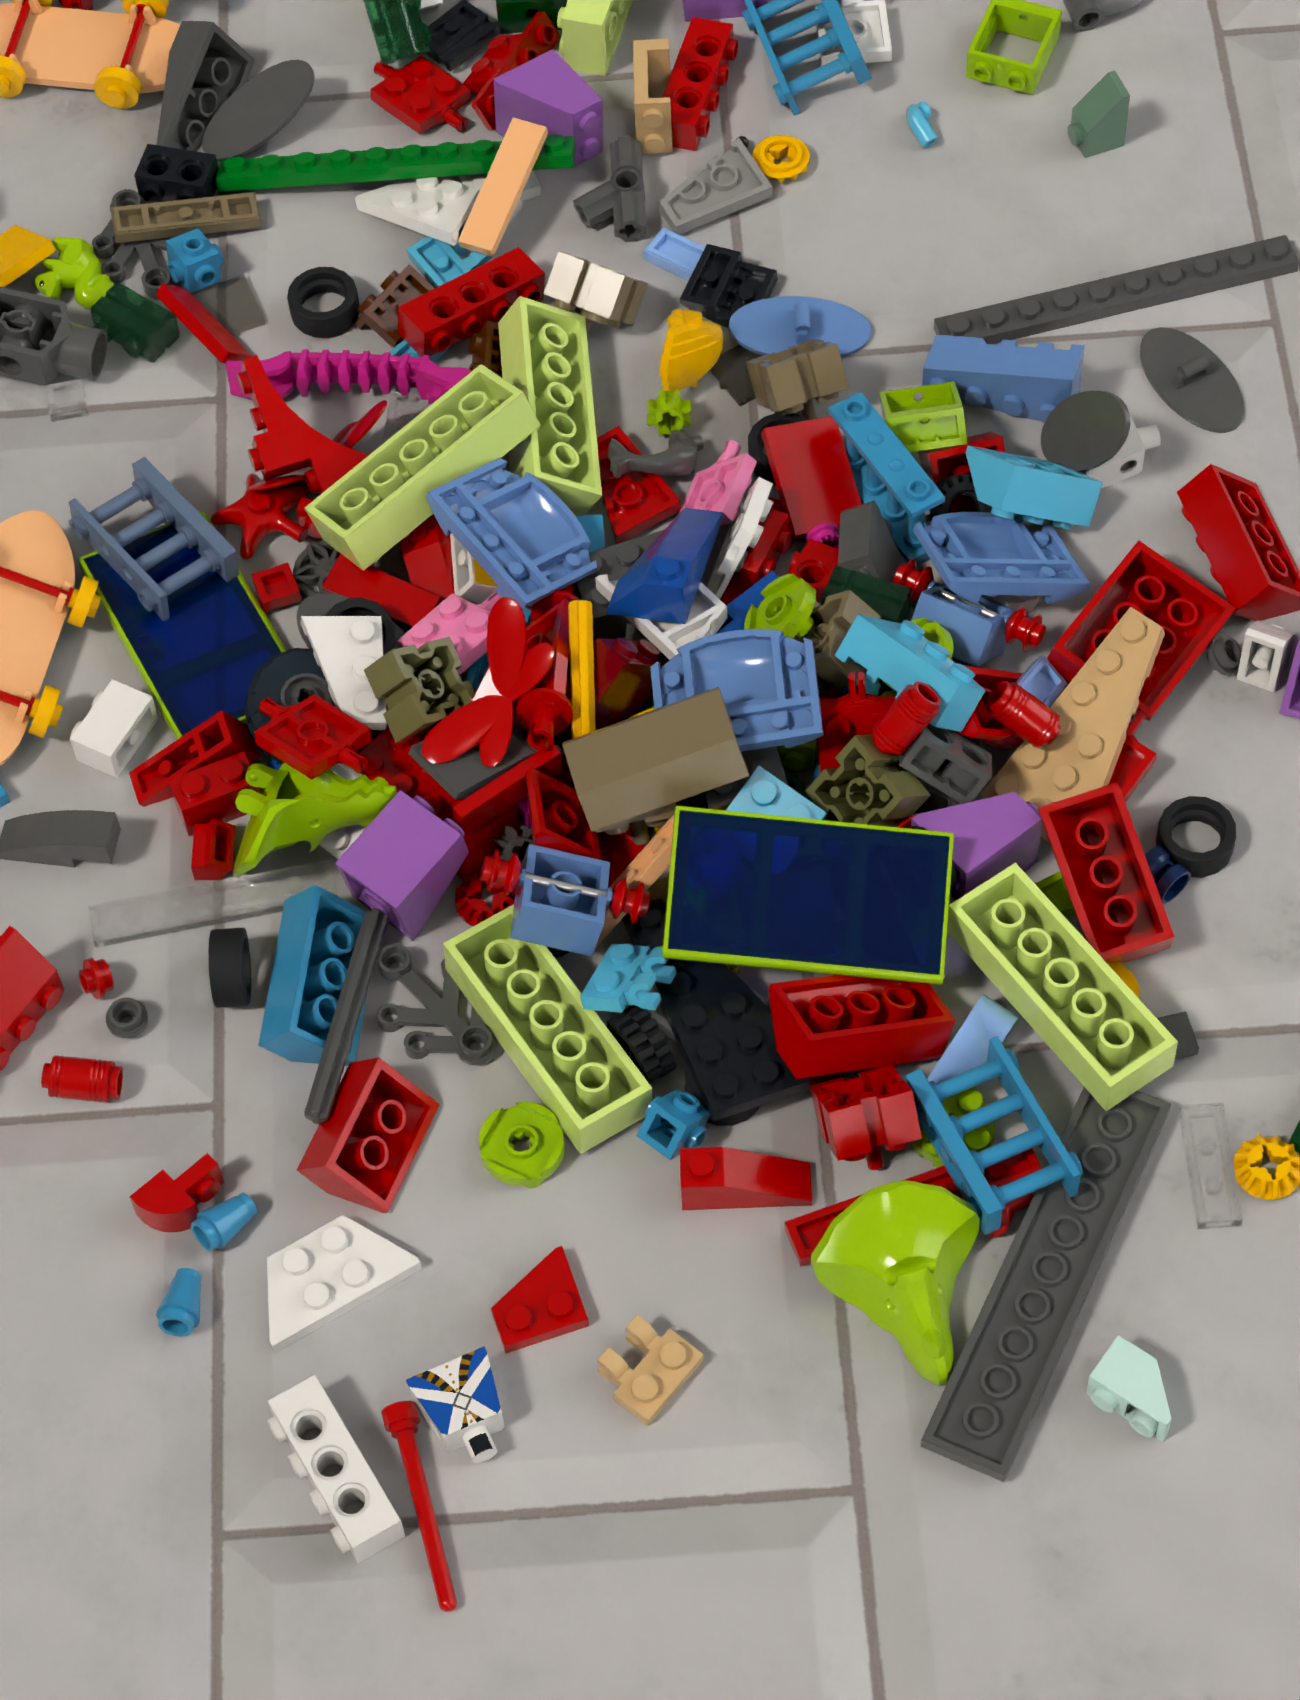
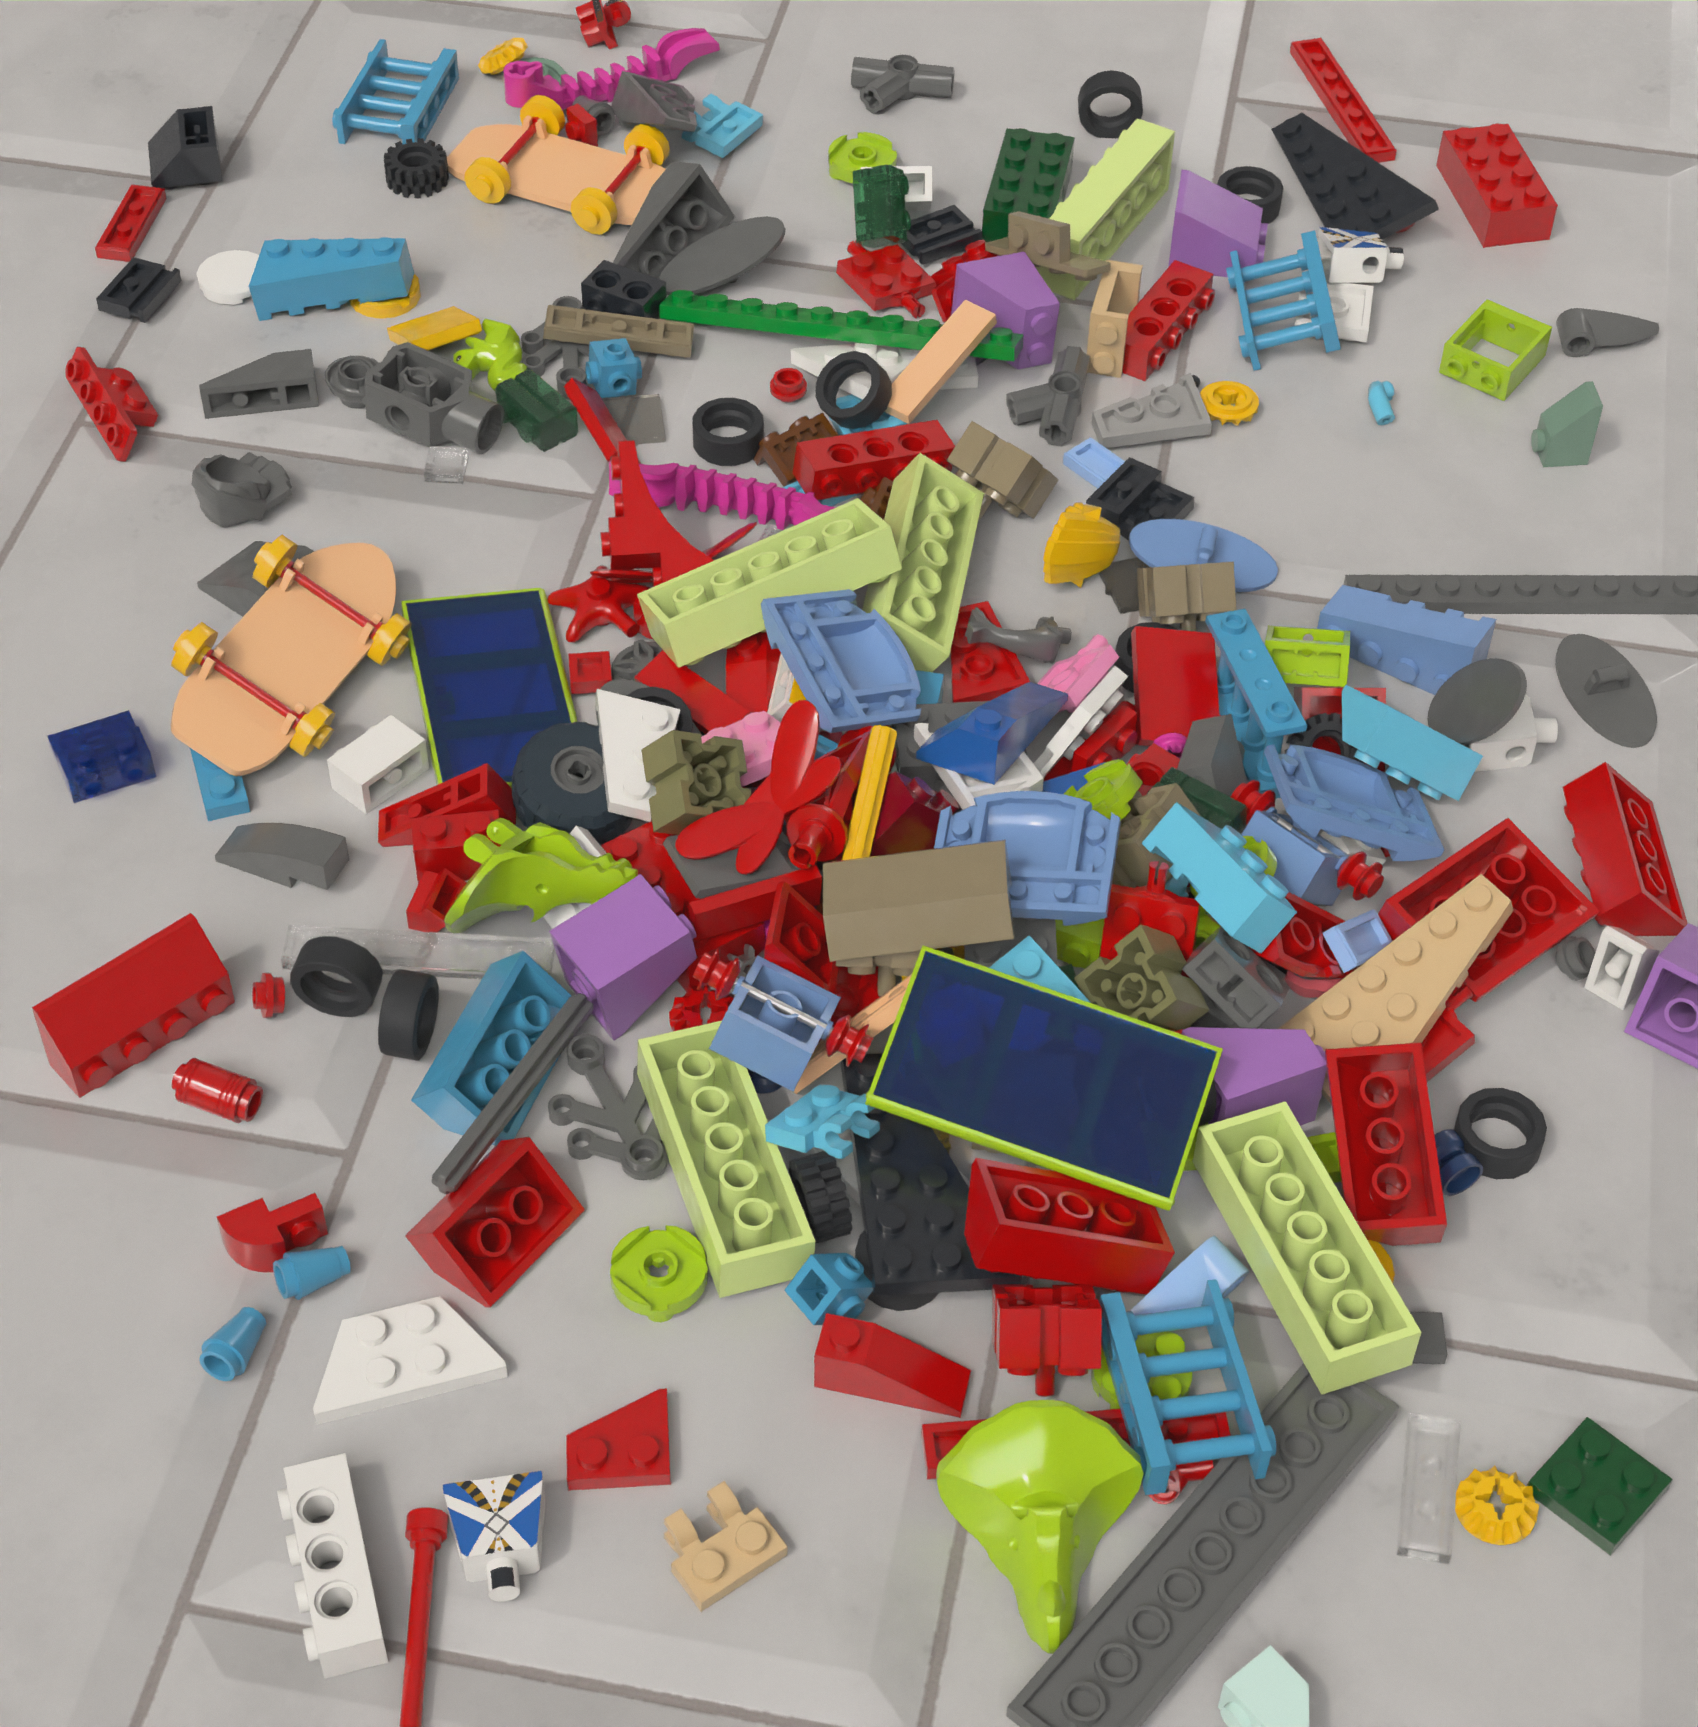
camera: 10 degrees right, 10 degrees down
(125, 1008) = (285, 1033): dark grey plate -> none
(153, 947) = (344, 959): none -> black tyre
(171, 509) = (507, 574): sand blue fence -> none
(312, 736) = (568, 803): red plate -> none
(364, 237) = (788, 385): none -> red plate
(407, 236) = (833, 376): none -> black tyre
(572, 39) = (1046, 245): none -> dark tan bracket
(669, 411) = (1050, 591): lime gear -> none
(905, 718) = (1200, 919): red head -> none
(1023, 714) = (1335, 954): red head -> none

